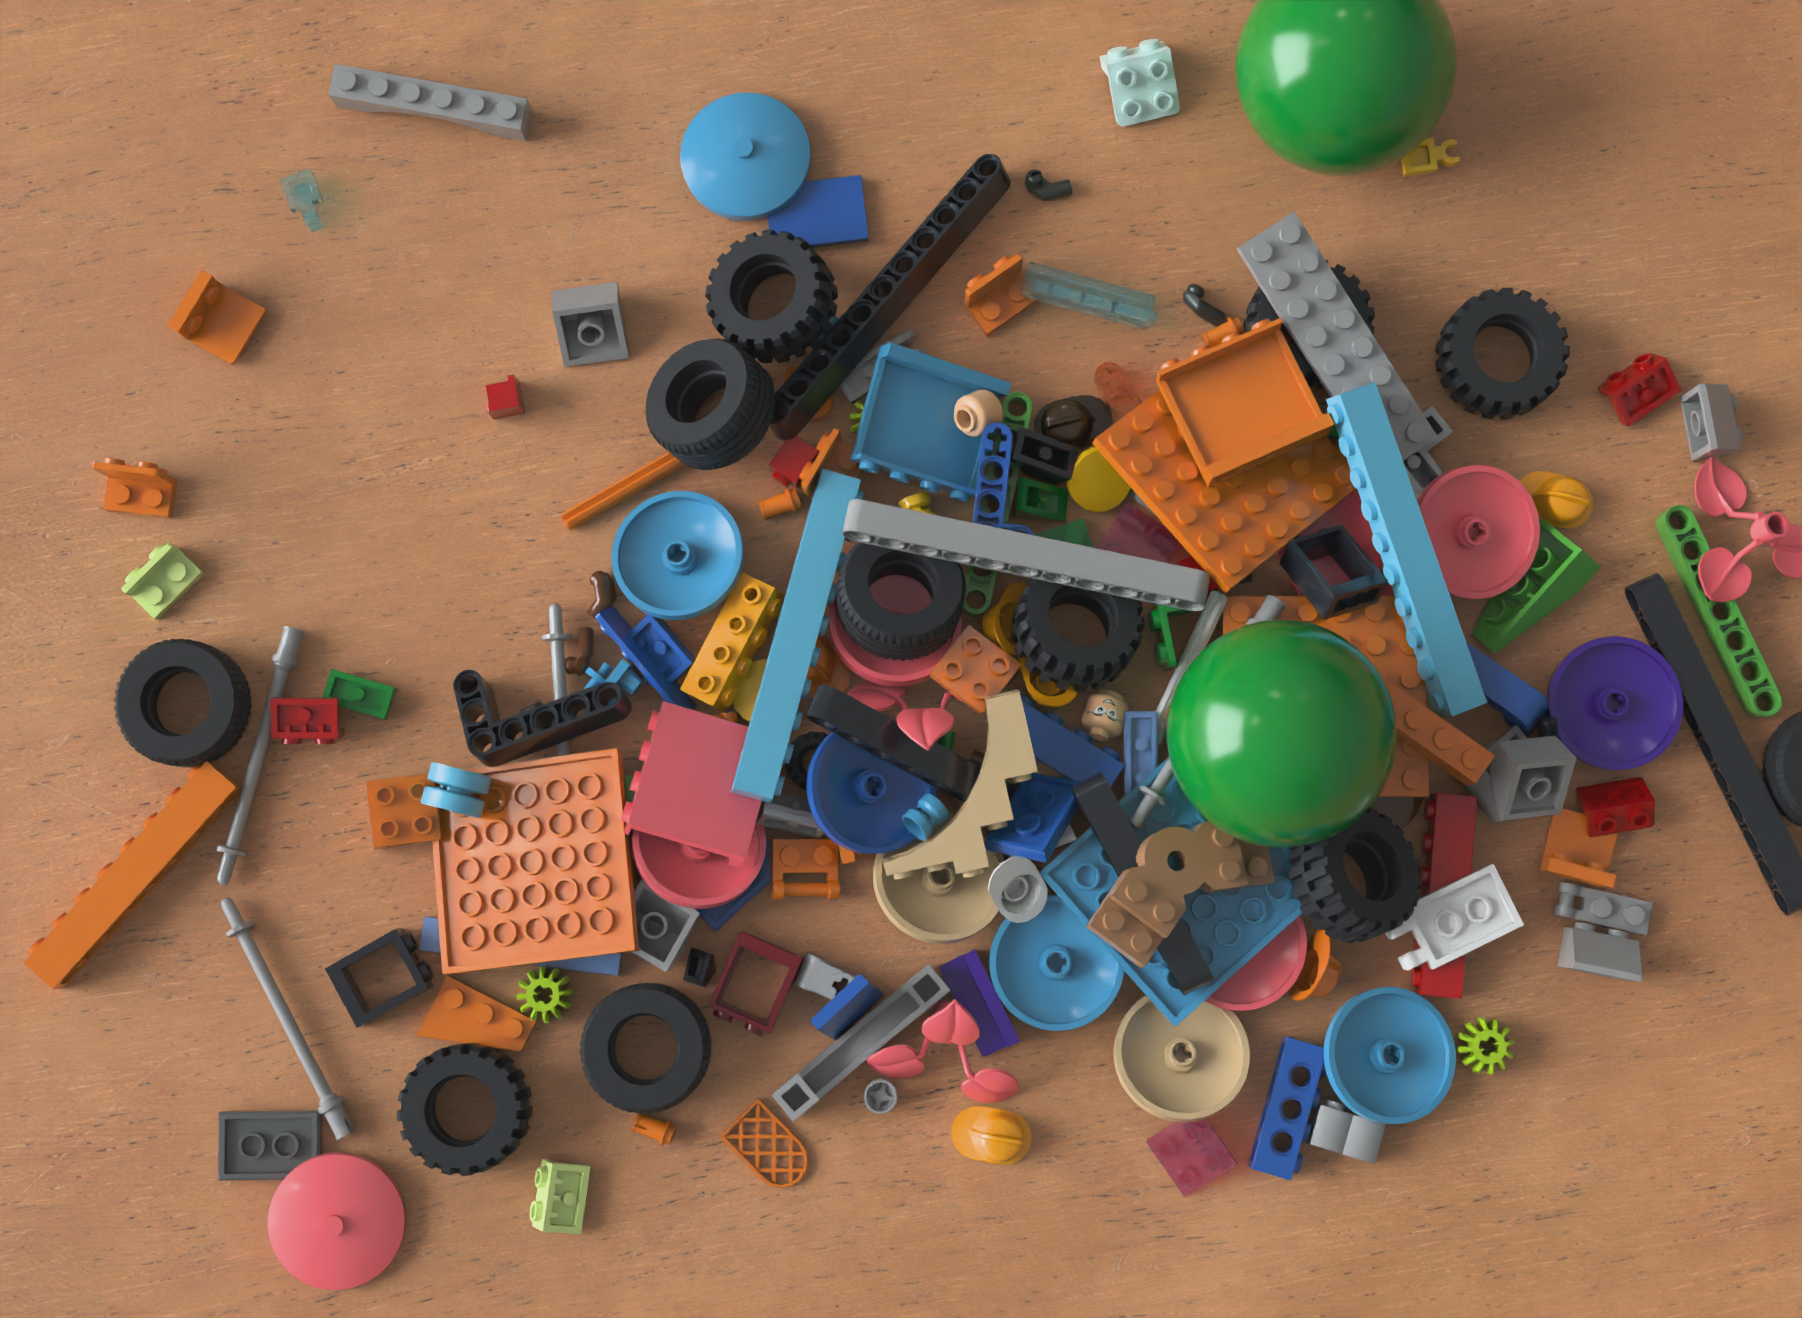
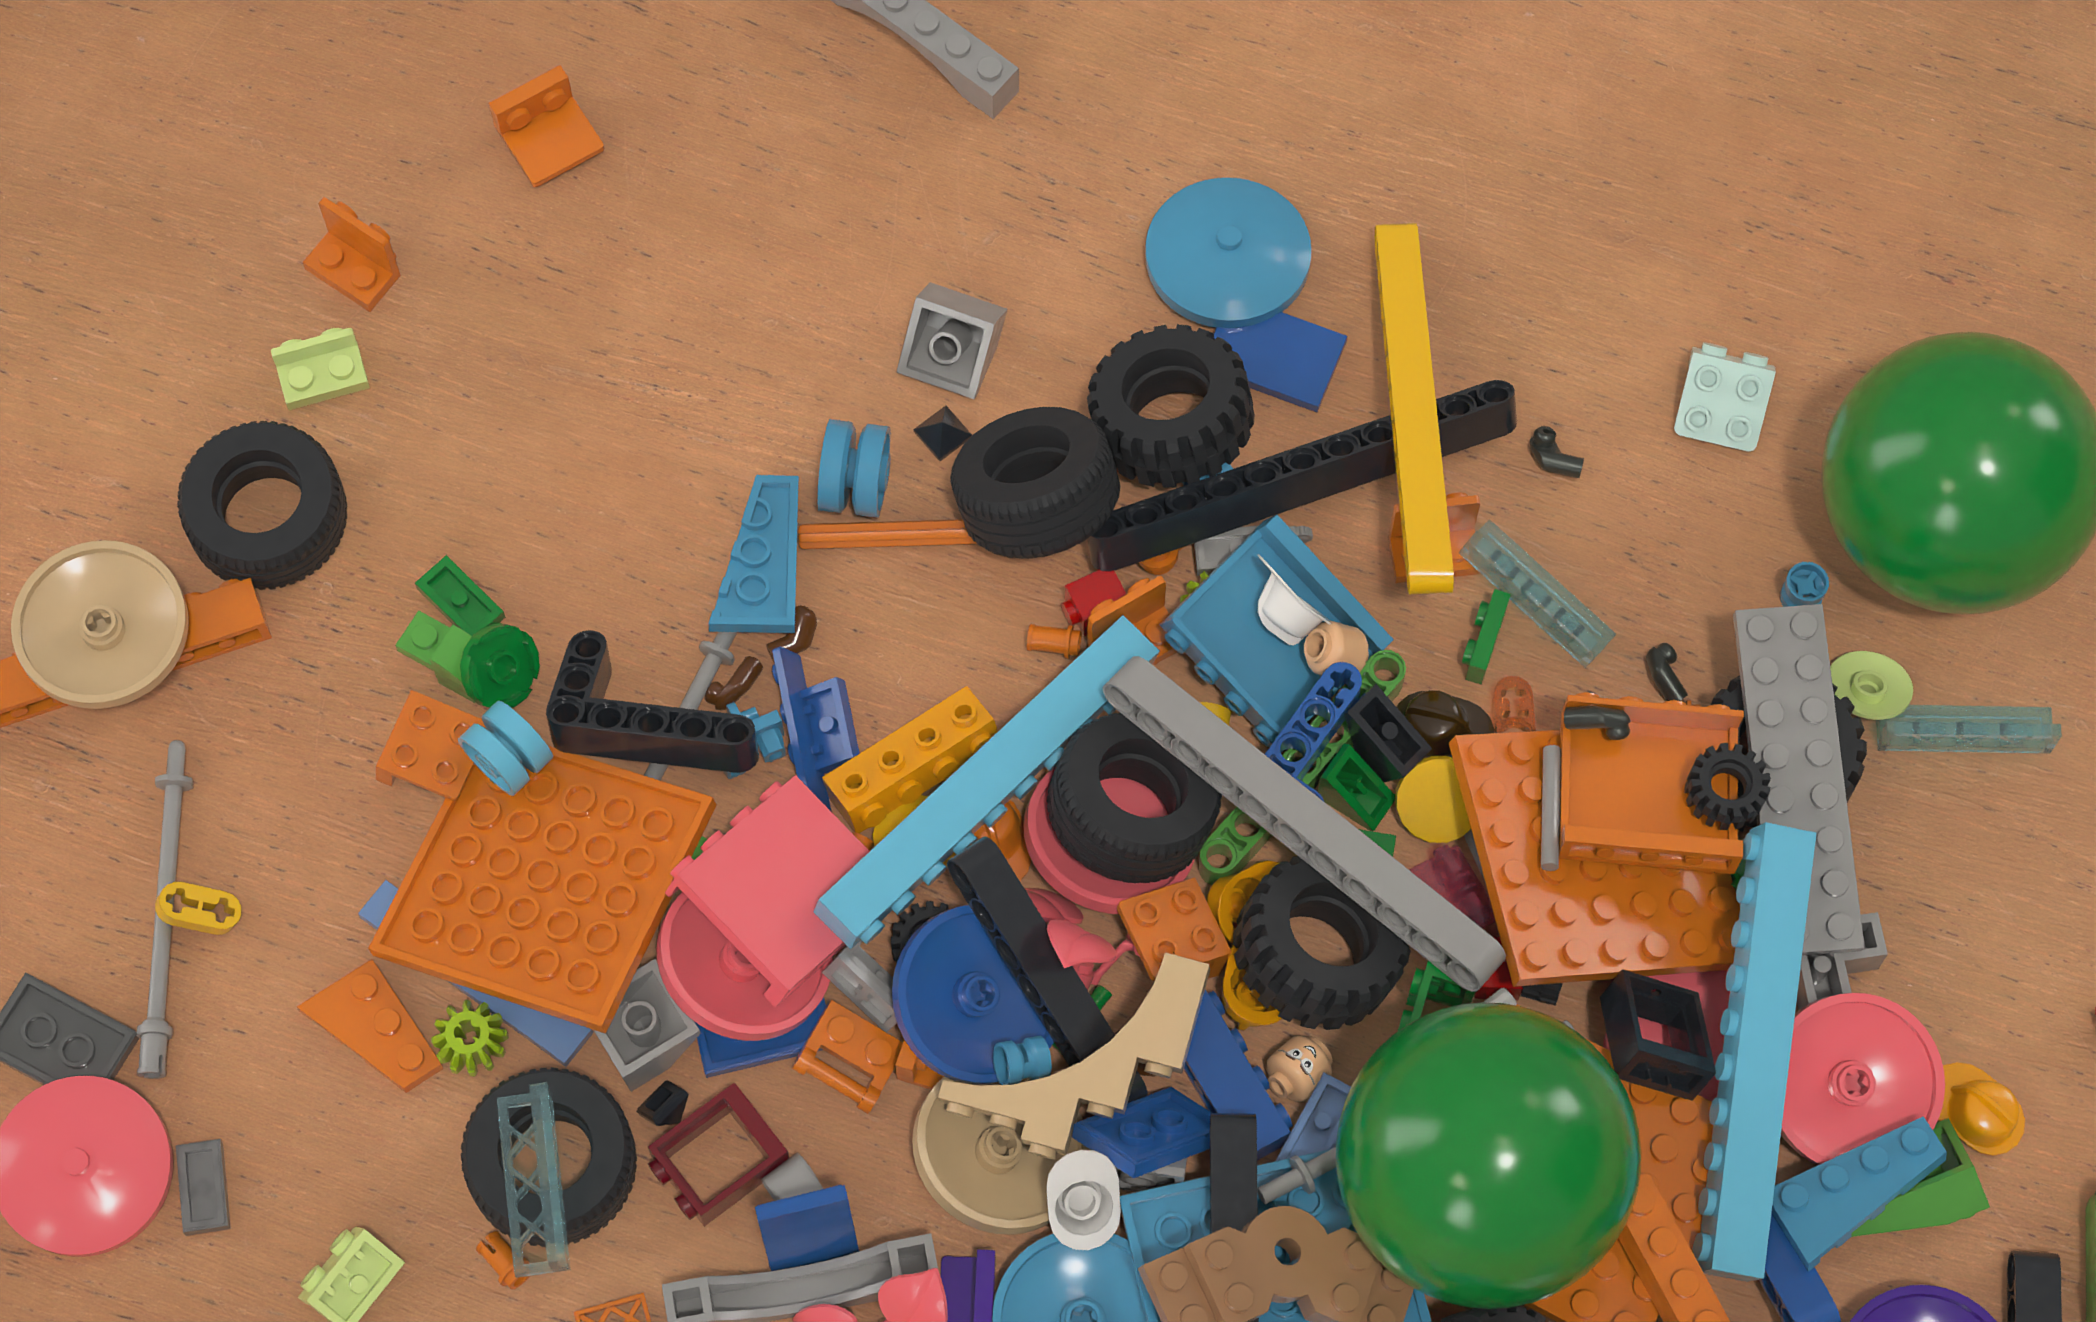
camera: 25 degrees right, 15 degrees down
(124, 855) = (99, 624): none -> tan dish
(284, 662) = (399, 522): light grey bar -> none
(303, 195) = (716, 49): clear light blue plate -> none
(305, 719) = (384, 591): red bracket -> none
(306, 999) = (200, 898): none -> yellow beam
(350, 992) = (252, 911): black window -> none
(374, 740) = (437, 649): none -> bright green brick
(415, 729) = (499, 665): none -> green tile
(420, 1117) = (267, 1070): black tyre -> none
(425, 1189) = (203, 1187): none -> flat silver tile
(505, 398) = (810, 371): red panel -> none
(554, 562) = (761, 572): none -> dark azure wing
(578, 457) = (848, 468): none -> dark azure wheel
(621, 394) = (942, 433): none -> black slope
(660, 1072) = (549, 1181): none -> clear light blue fence
(677, 555) = (905, 632): dark azure dish -> none
(931, 404) = (1285, 612): none -> white piece
(940, 212) = (1413, 410): none -> yellow beam
(1071, 358) = (1490, 619): none -> green plate
(1185, 454) = (1550, 808): none -> light grey bar
(1196, 372) = (1592, 717): none -> pearl dark grey arm
(1265, 188) = (1807, 580): none -> dark azure wheel
(1308, 361) = (1737, 765): none -> black tyre
(1345, 232) = (1873, 684): none -> yellowish green dish
(1420, 237) = (1969, 729): none -> clear light blue fence
(1426, 156) = (2016, 640): yellow plate -> none
(1506, 612) = (1840, 1195): none -> dark azure wing
(1526, 319) = (2024, 858): black tyre -> none

